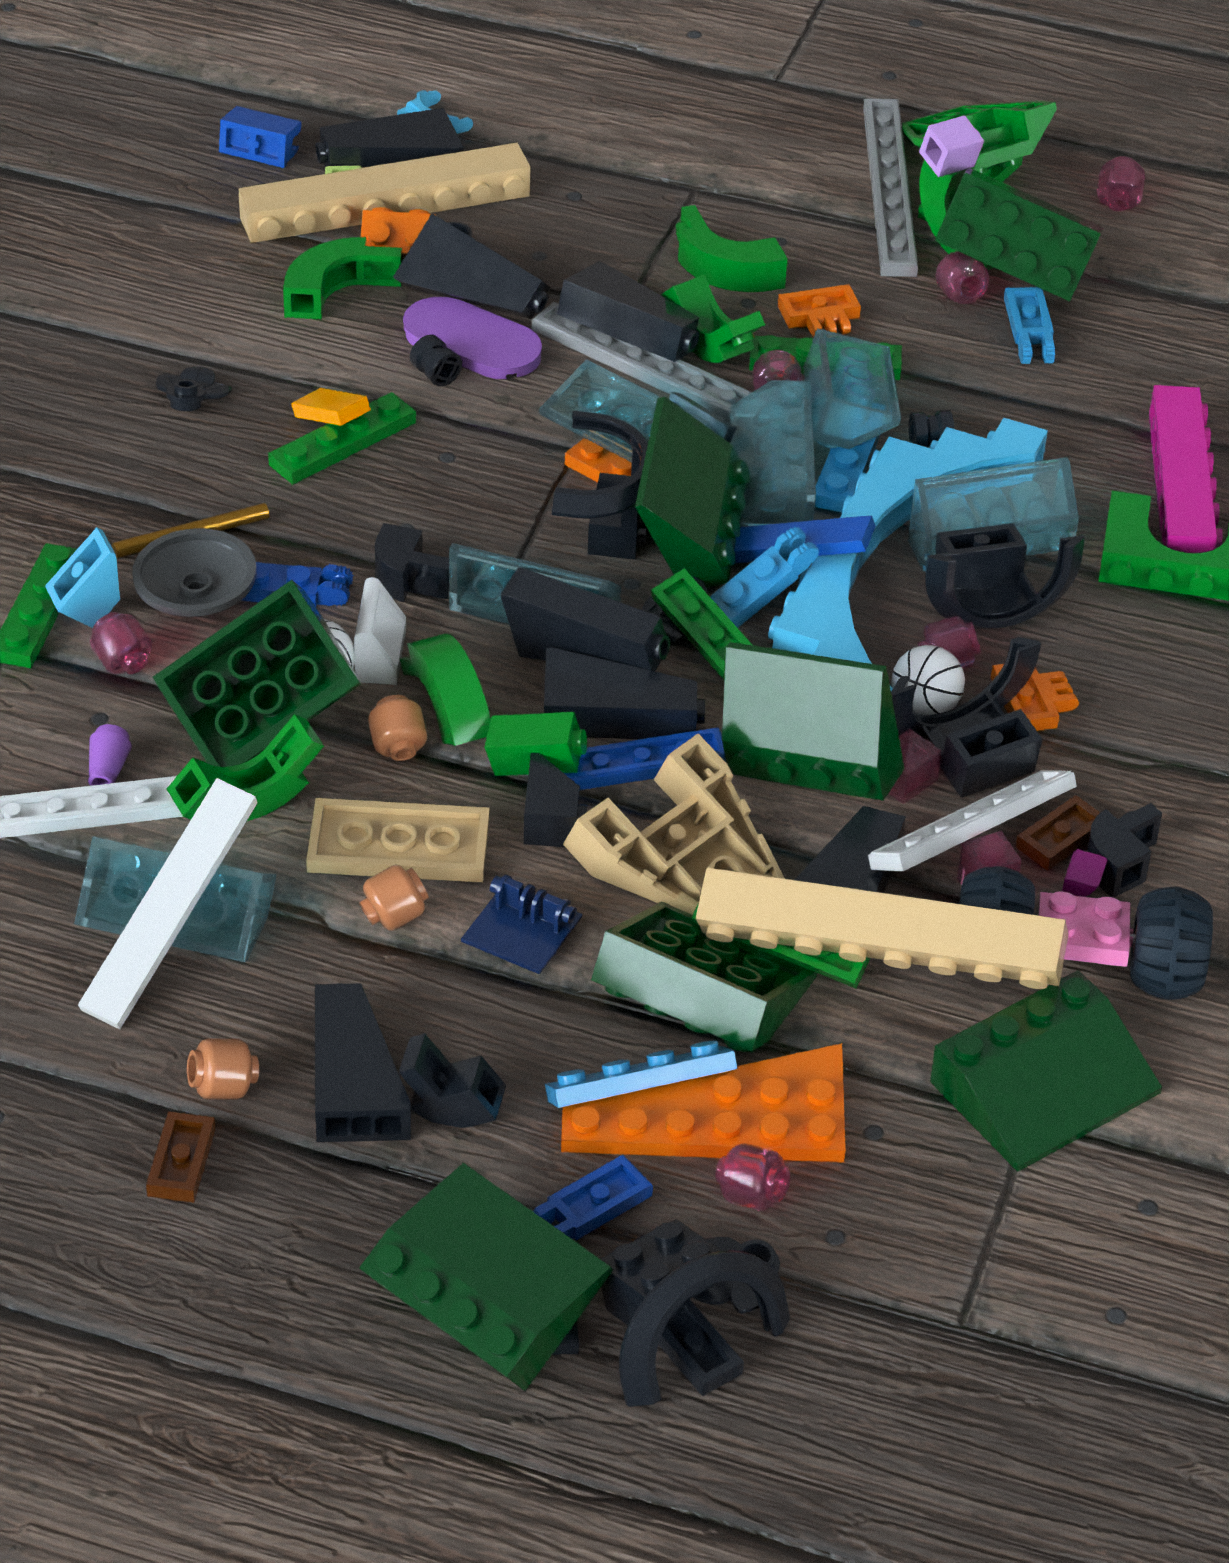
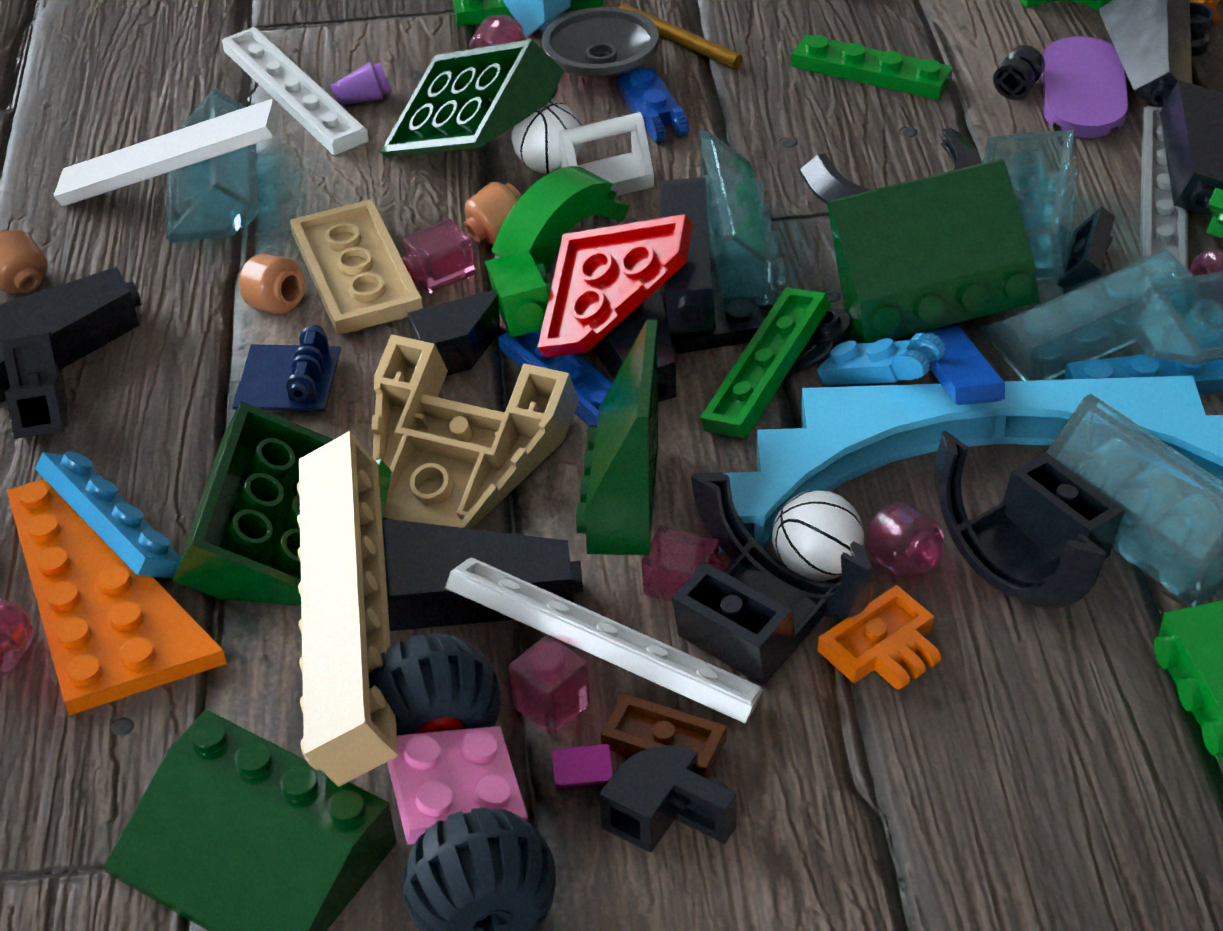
camera: 70 degrees right, 0 degrees up
(270, 776) = (355, 157): green arch -> none
(331, 406) = (891, 39): light orange tile -> none
(404, 566) = (729, 126): black brick -> none
(431, 776) = (439, 256): none -> clear pink brick
(597, 671) = (606, 277): none -> red plate

